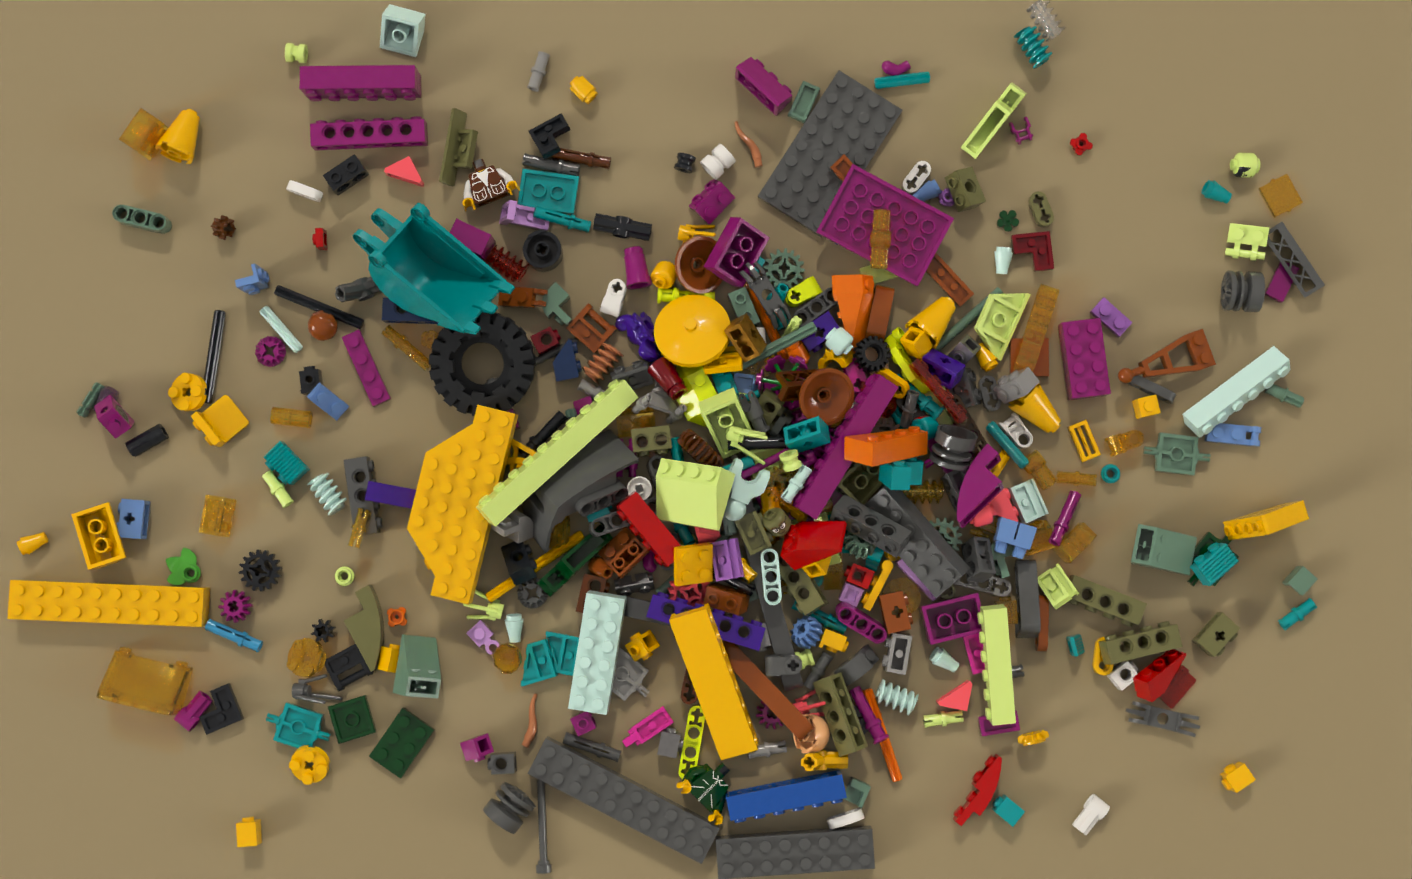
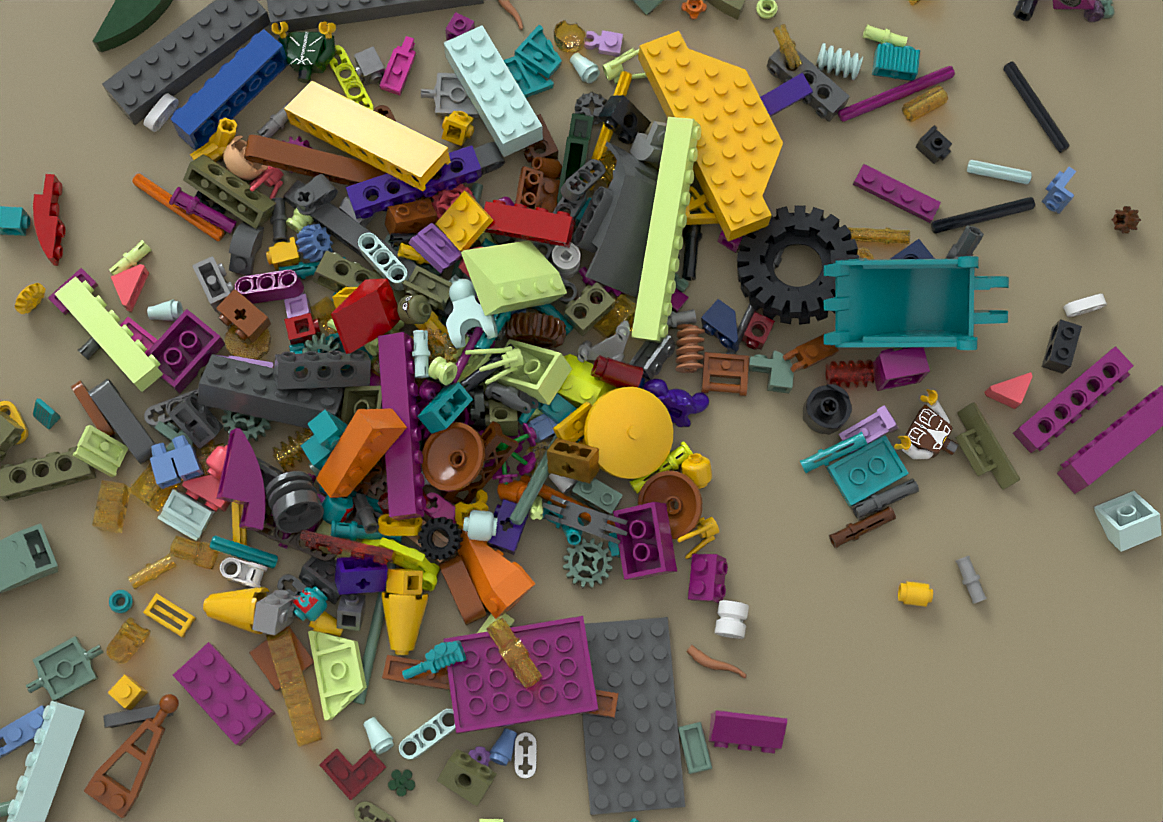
camera: 135 degrees right, 10 degrees down
(178, 392) = (1038, 54): yellow plate -> none
(220, 421) = (982, 55): yellow bracket -> none
(279, 351) = (983, 150): magenta gear -> none
(304, 440) = (896, 93): none -> magenta axle
(320, 238) = (1033, 273): red plate -> none
(322, 325) = (966, 198): dark orange hair -> none
(328, 401) = (905, 136): medium blue plate -> none
(545, 135) = (914, 521): black plate -> none
(594, 533) = (582, 187): none -> dark grey beam
(612, 301) = (724, 414): white piece -> none
(613, 754) = (435, 18): dark grey pin -> none
(622, 227) = (771, 489): black piece -> none
(636, 269) = (728, 458): magenta plant -> none
(643, 584) = (500, 183): dark grey hinge -> none
(684, 162) = (762, 595): black wheel -> none
(805, 291) = (549, 558): neon yellow piece -> none
(822, 300) = (532, 538): dark grey beam -> none
(857, 791) = (166, 143): sand green panel -> none
(877, 584) = (279, 334): yellow plate -> none
(896, 697) = (187, 246): light aqua piece -> none
(930, 275) = (438, 658): none -> teal piece
(976, 230) = (418, 738): none -> light aqua beam
(988, 374) = (310, 604): none -> teal head
(1011, 608) = (137, 400): clear yellow brick -> none
(1061, 525) = (137, 523): magenta pin -> none
(1111, 317) = (226, 760): medium lavender plate -> none

